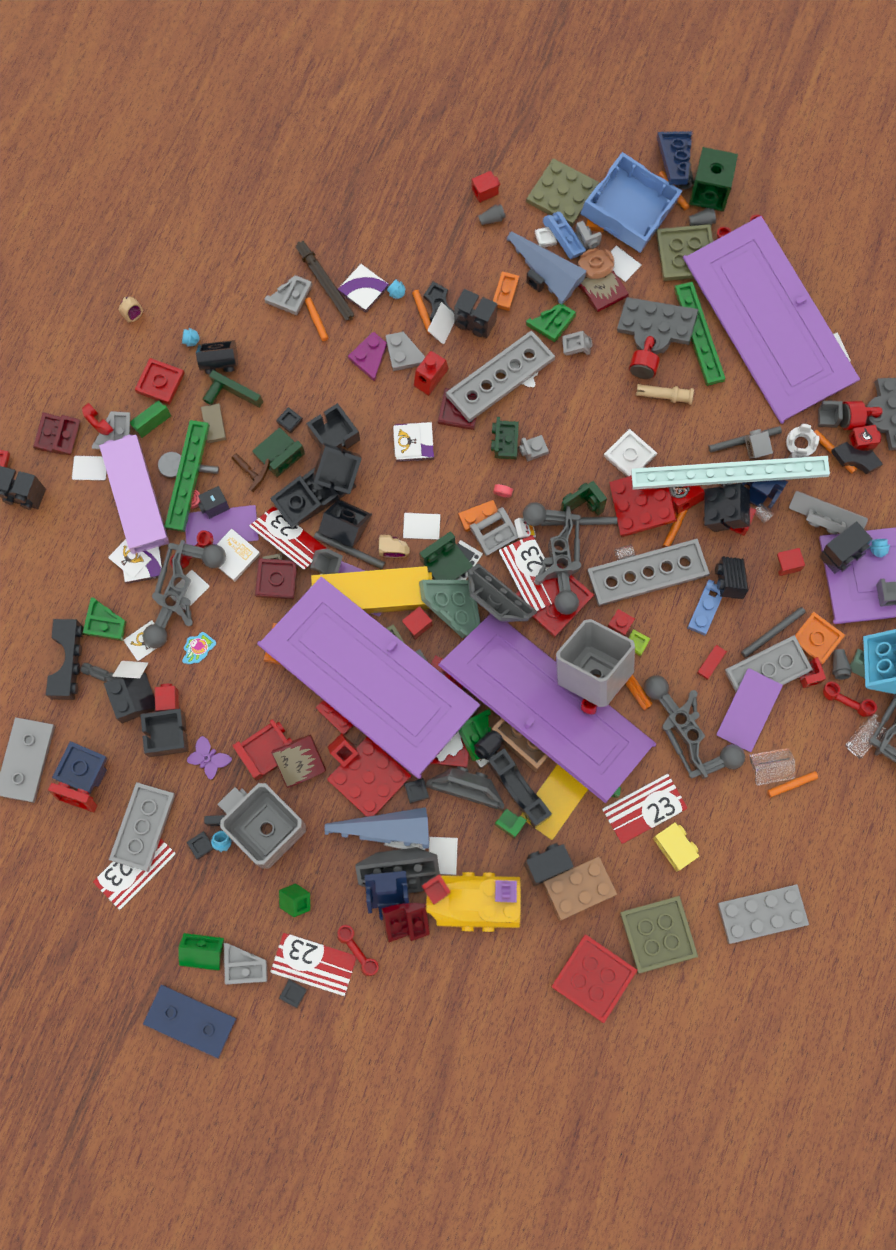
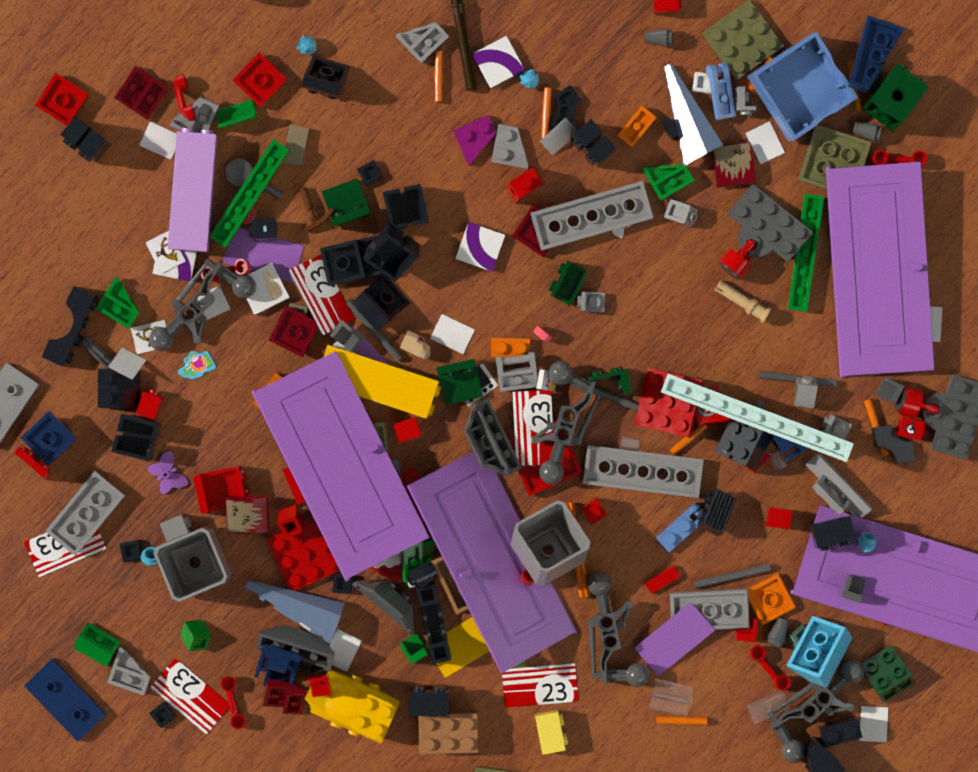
camera: 20 degrees right, 15 degrees up
(213, 820) = (152, 535): black tile -> none
(220, 381) = (318, 107): dark green piece -> none
(407, 440) = (473, 244): white sticker -> none
(451, 603) = (446, 427): sand green plate -> none
(505, 891) = (380, 712): medium lavender tile -> none
(597, 263) = (739, 135): nougat tile -> none
(629, 453) = (681, 347): white tile -> none
(640, 641) = (602, 532): lime tile -> none
(806, 432) = (850, 416): white piece -> none

